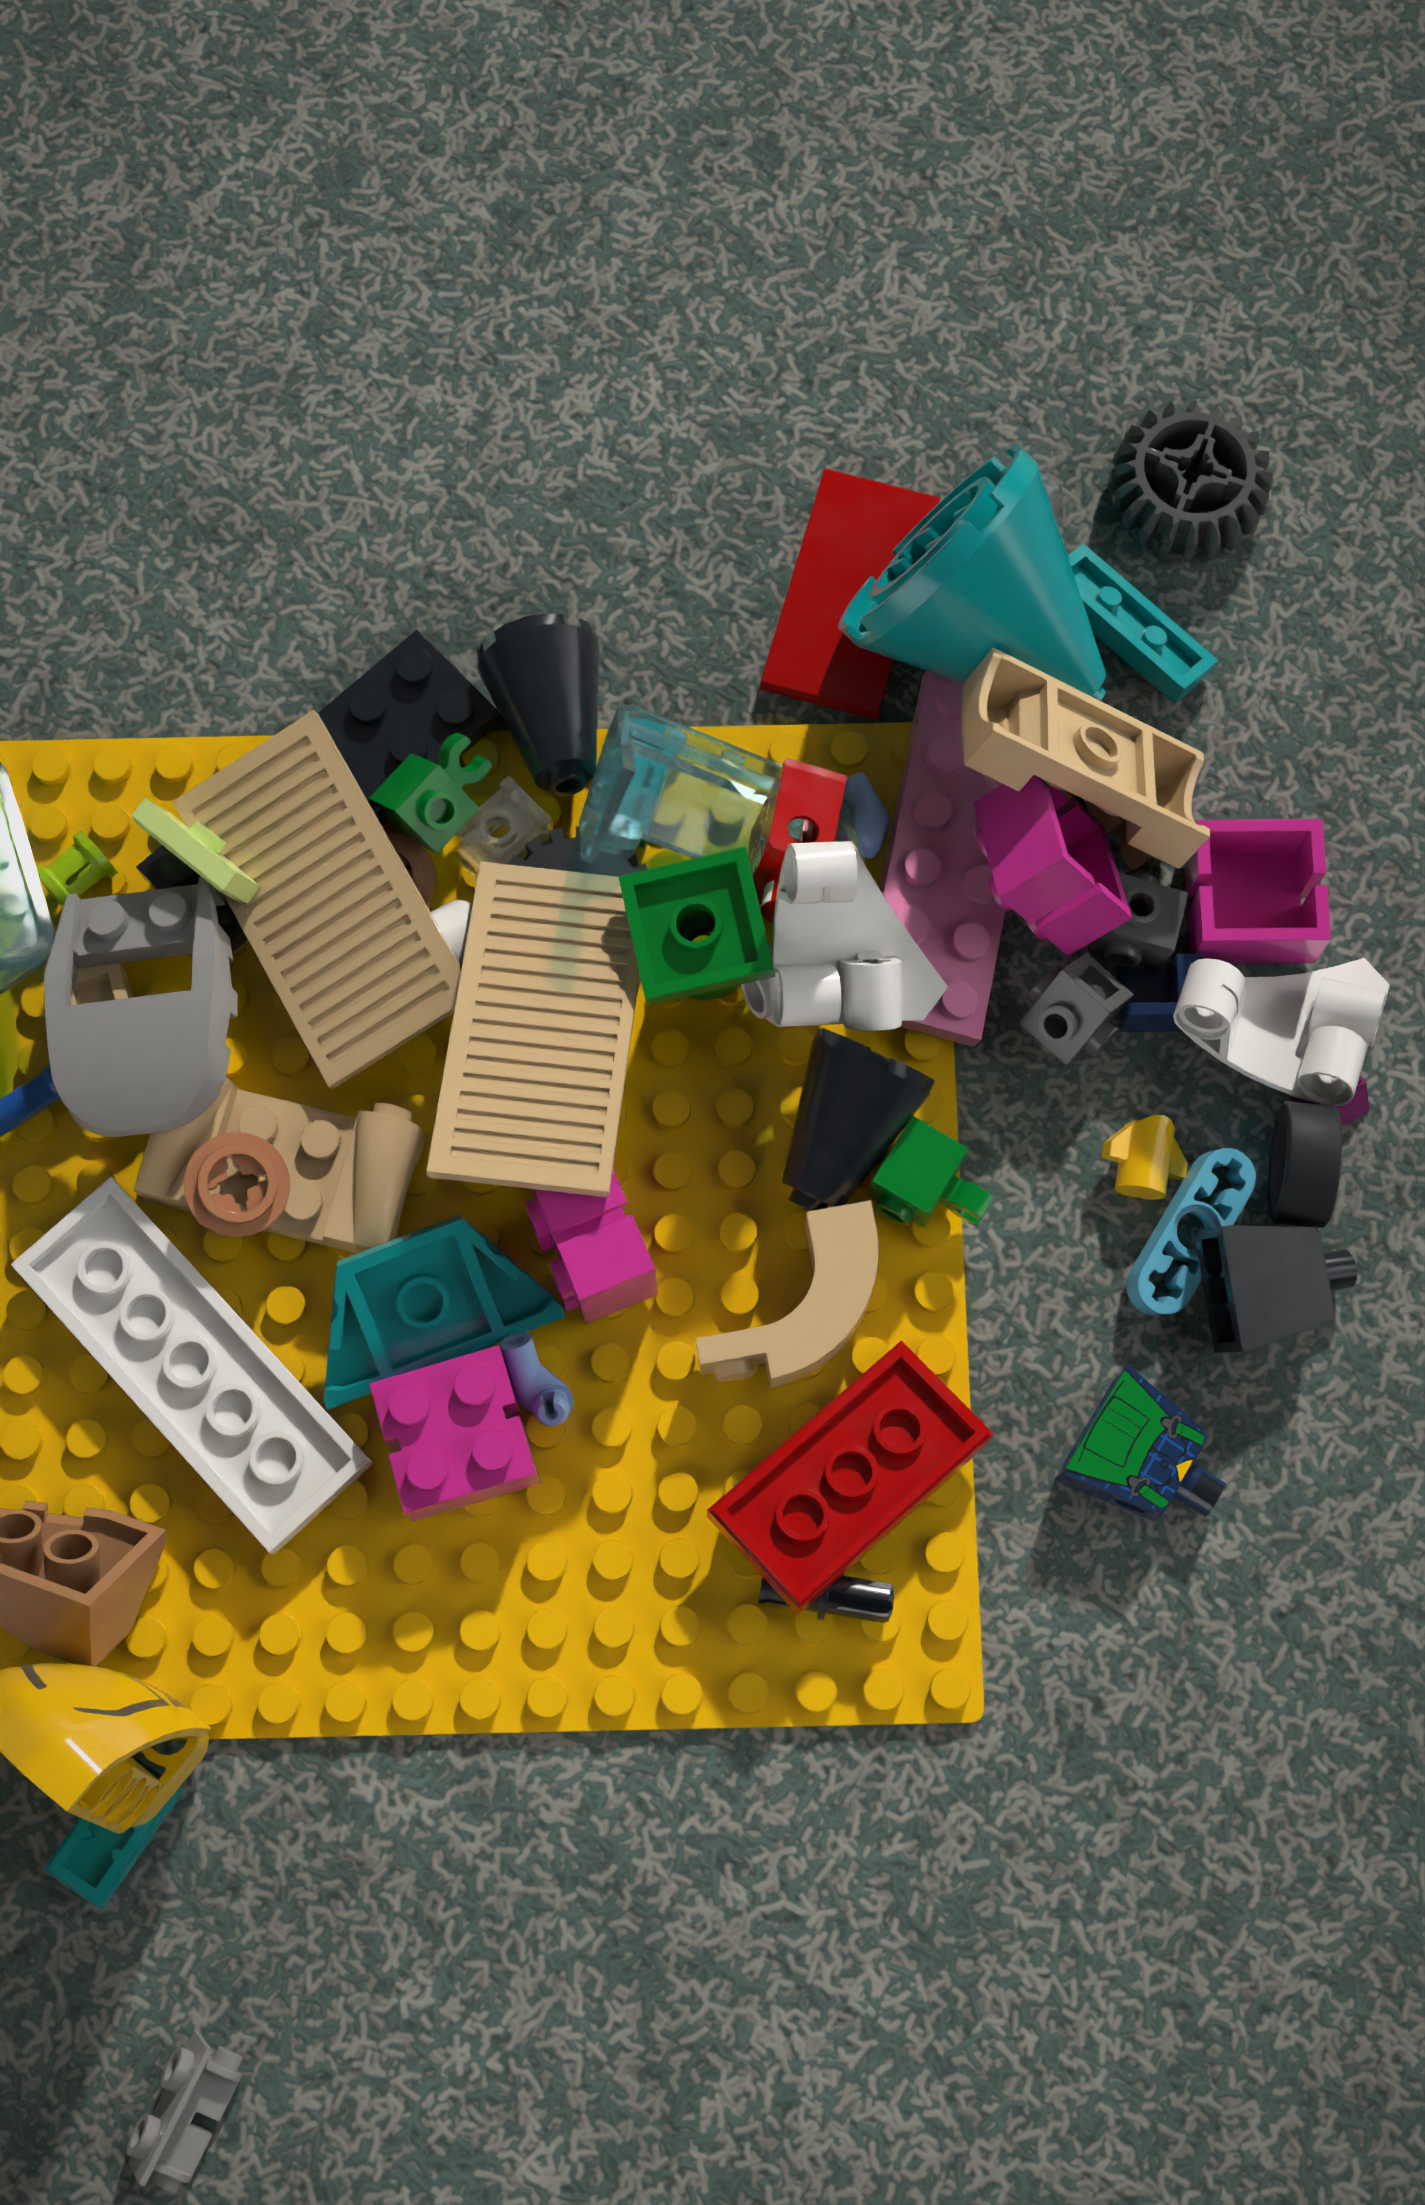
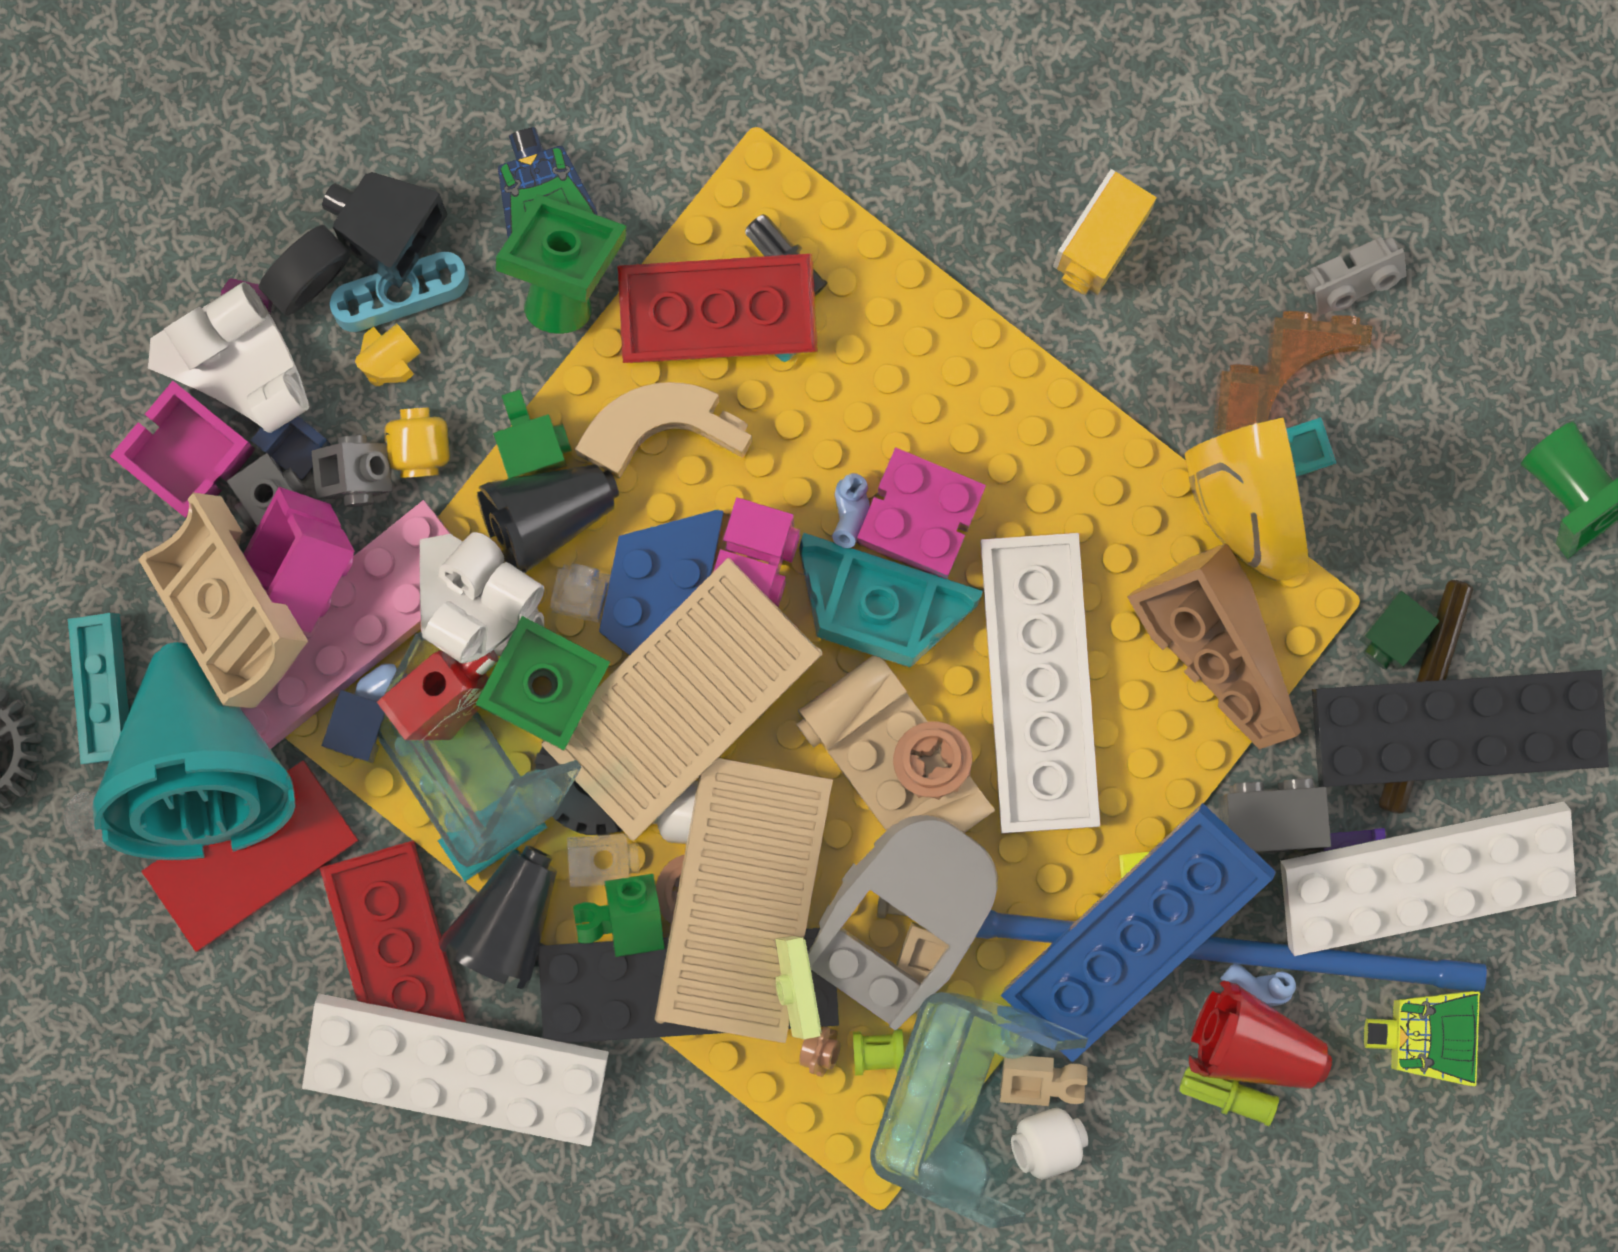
camera: 140 degrees left, 10 degrees up
(129, 834) = (820, 1052): none -> nougat plate
(197, 1861) = (1294, 342): none -> clear orange arch
(484, 547) = (454, 1069): none -> white plate
(498, 1912) = (1103, 233): none -> yellow piece
(647, 617) = (392, 932): none -> red tile
(676, 1152) = (656, 574): none -> blue wing
(743, 1070) = (580, 592): none -> clear brick
(858, 754) = (354, 727): none -> dark blue panel
(1037, 1092) = (417, 443): none -> yellow head
(1059, 1382) = (563, 258): none -> green plant

